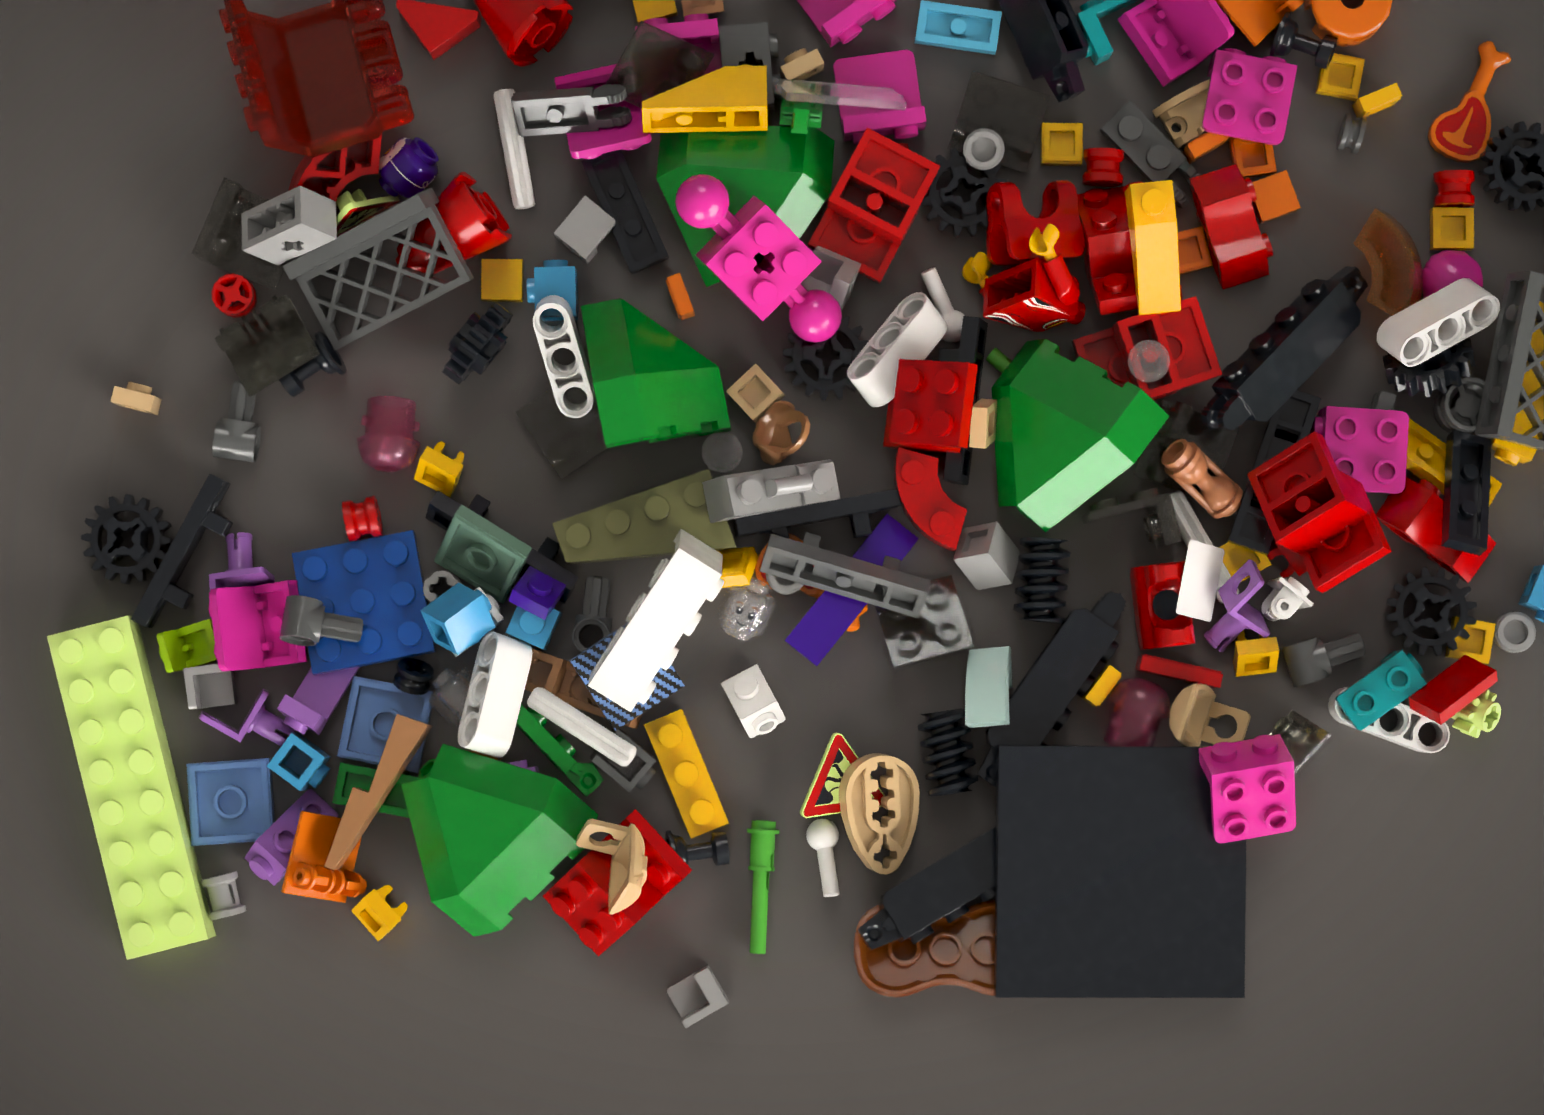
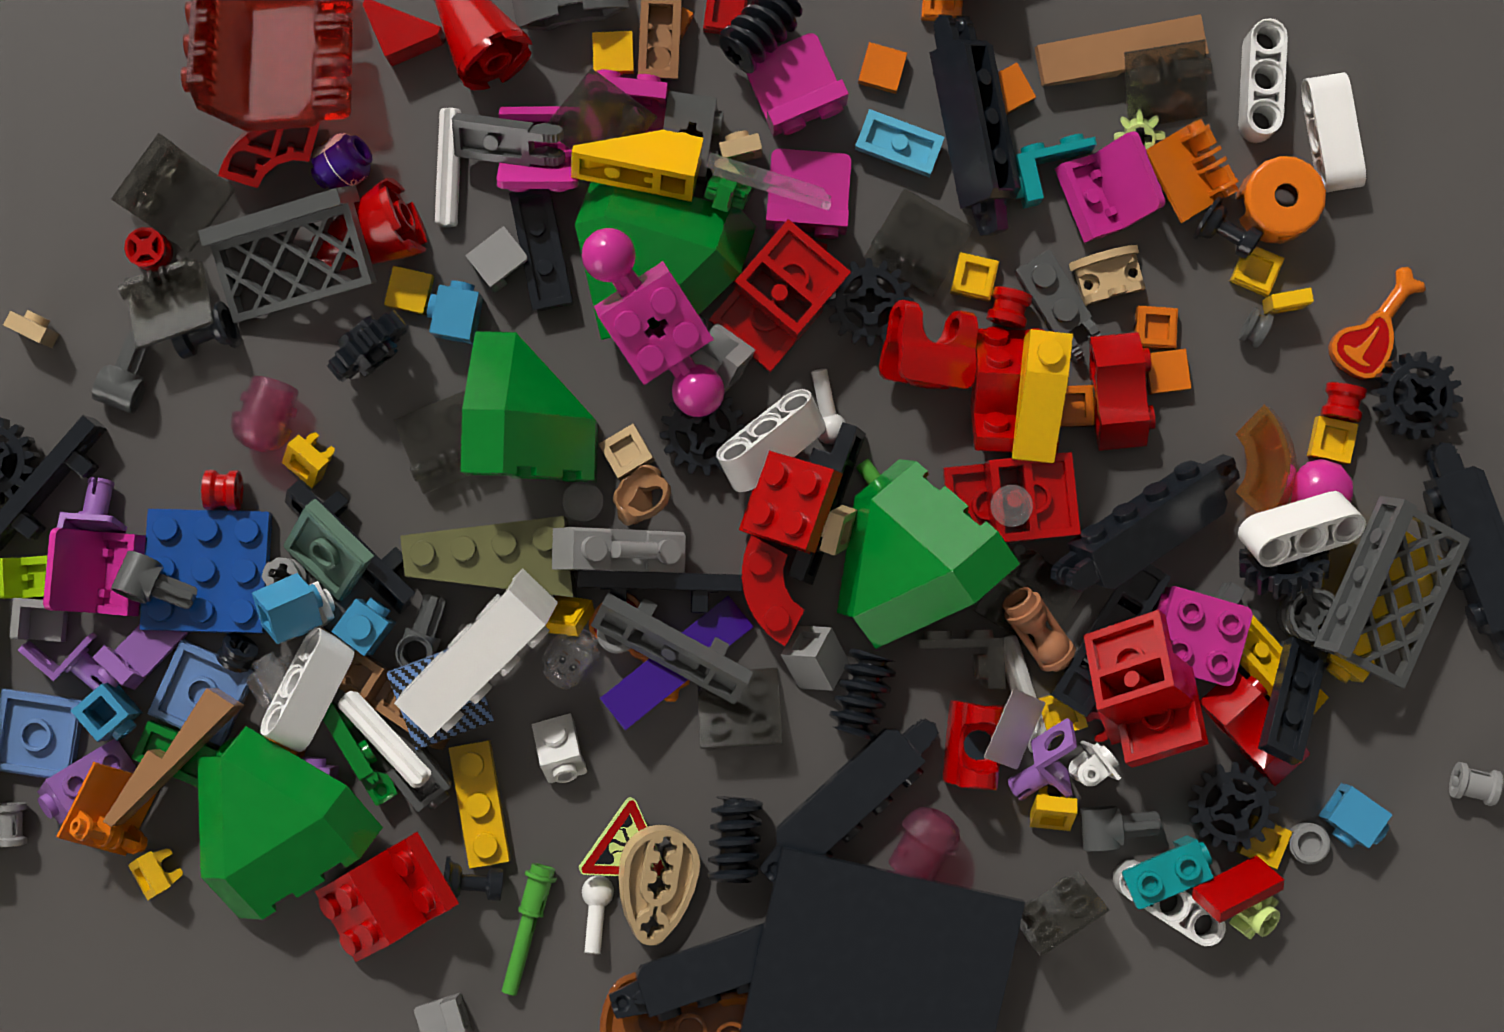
camera: 15 degrees right, 0 degrees up
(289, 225) = (209, 192): light grey brick -> none
(357, 209) = (280, 191): yellowish green piece -> none
(537, 593) = (370, 600): dark purple plate -> none
(564, 376) = (451, 357): white beam -> none
(628, 860) = (396, 884): tan piece -> none
(679, 296) = (574, 343): orange tile -> none
(983, 148) = (897, 264): light grey tile -> none
(988, 687) = (786, 785): light aqua slope -> none
(1032, 293) = (912, 414): red torso -> none
(1102, 686) = (899, 808): yellow tile -> none
(1179, 670) = (976, 810): red tile -> none
(1192, 714) = (979, 855): tan piece -> none
(1203, 145) = (1113, 306): orange tile -> none
(1248, 96) = (1165, 269): dark pink bracket -> none
(1250, 787) = (1019, 943): dark pink bracket -> none

